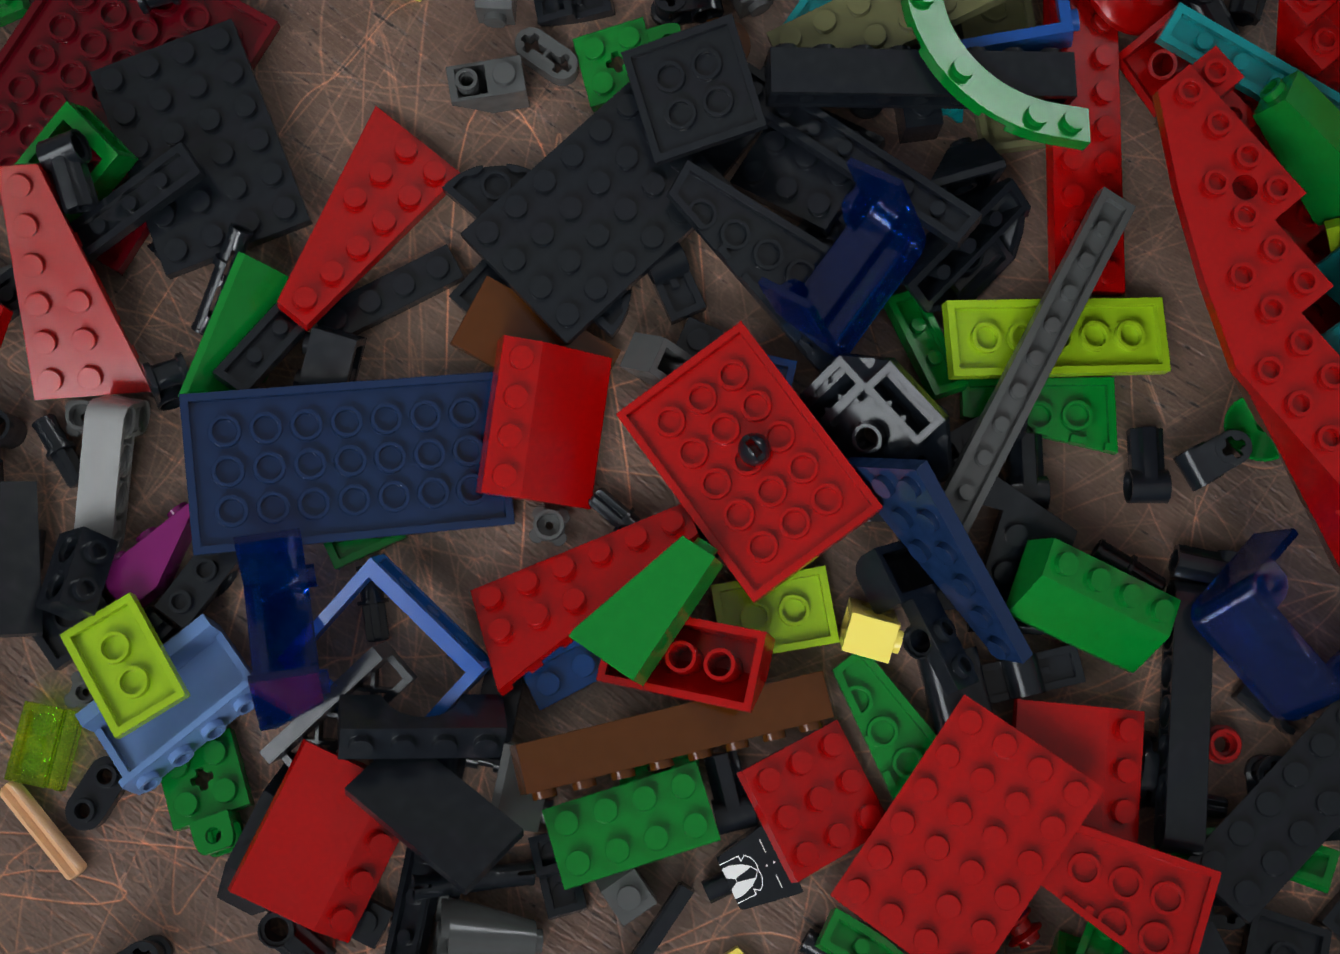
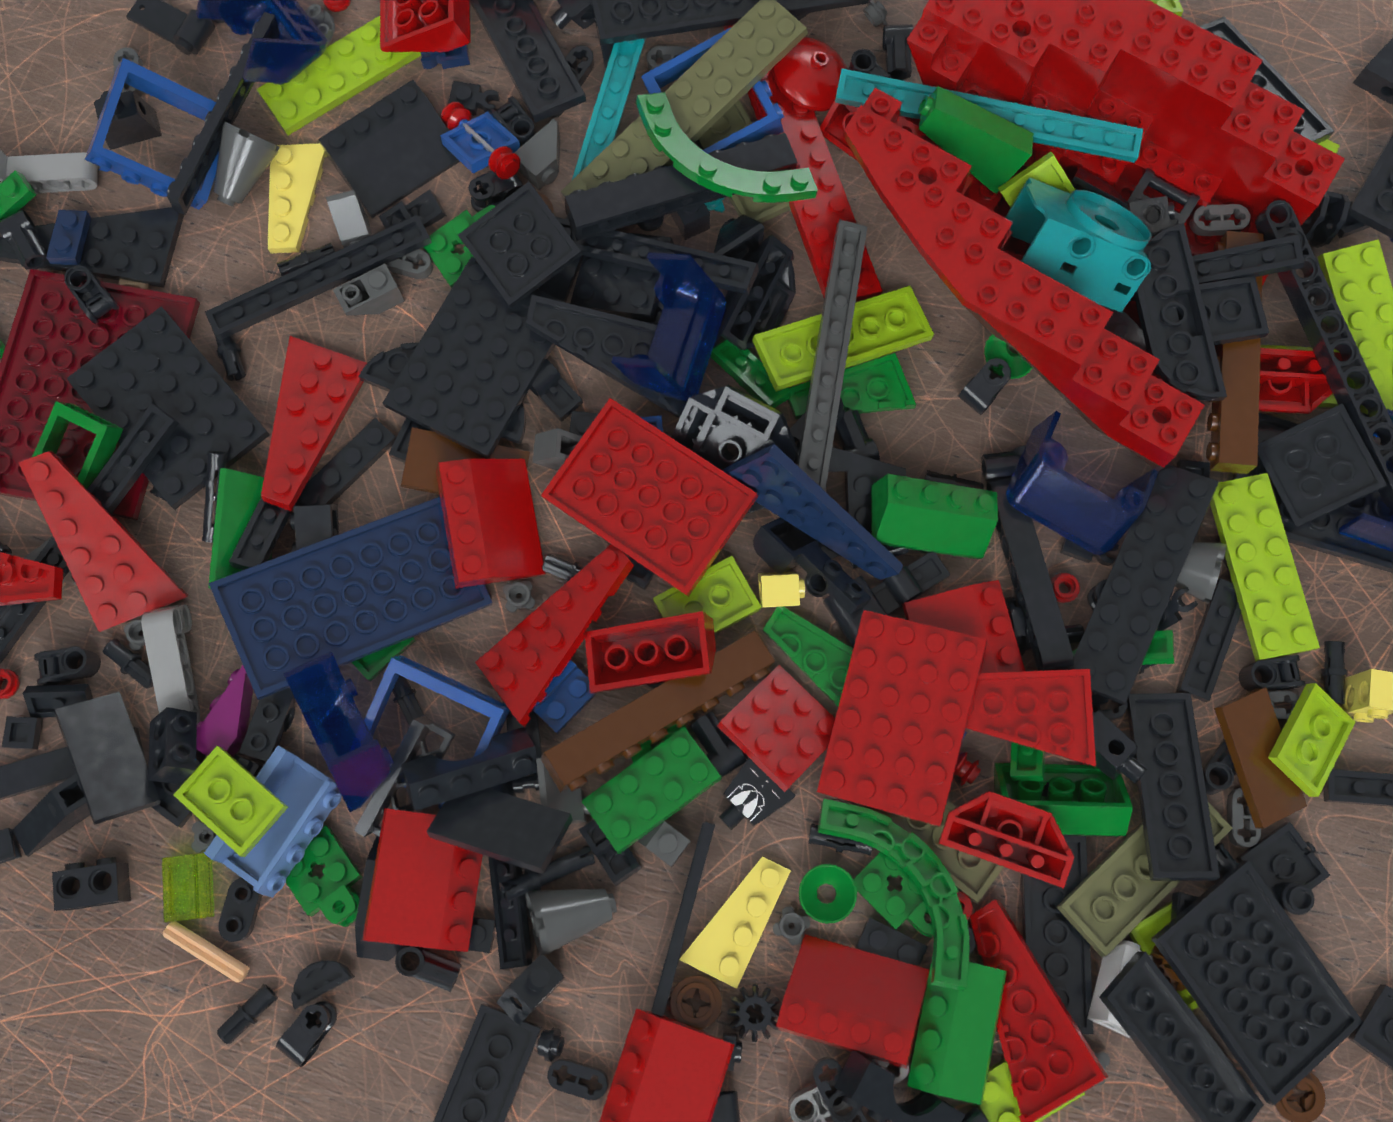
camera: 15 degrees left, 5 degrees down
(66, 160) = (70, 443): black piece -> none
(67, 921) = (247, 1014): none -> black axle
(163, 910) = (317, 980): none -> black plate
(166, 381) = (195, 583): black piece -> none
(296, 100) = (229, 353): none -> black pin
(427, 17) = (304, 259): none -> black pin
(433, 44) = (317, 277): none -> black plate
(650, 610) = (612, 625): green slope -> none
(747, 454) = (645, 489): black hinge -> none
(1146, 474) = (943, 416): black piece -> none

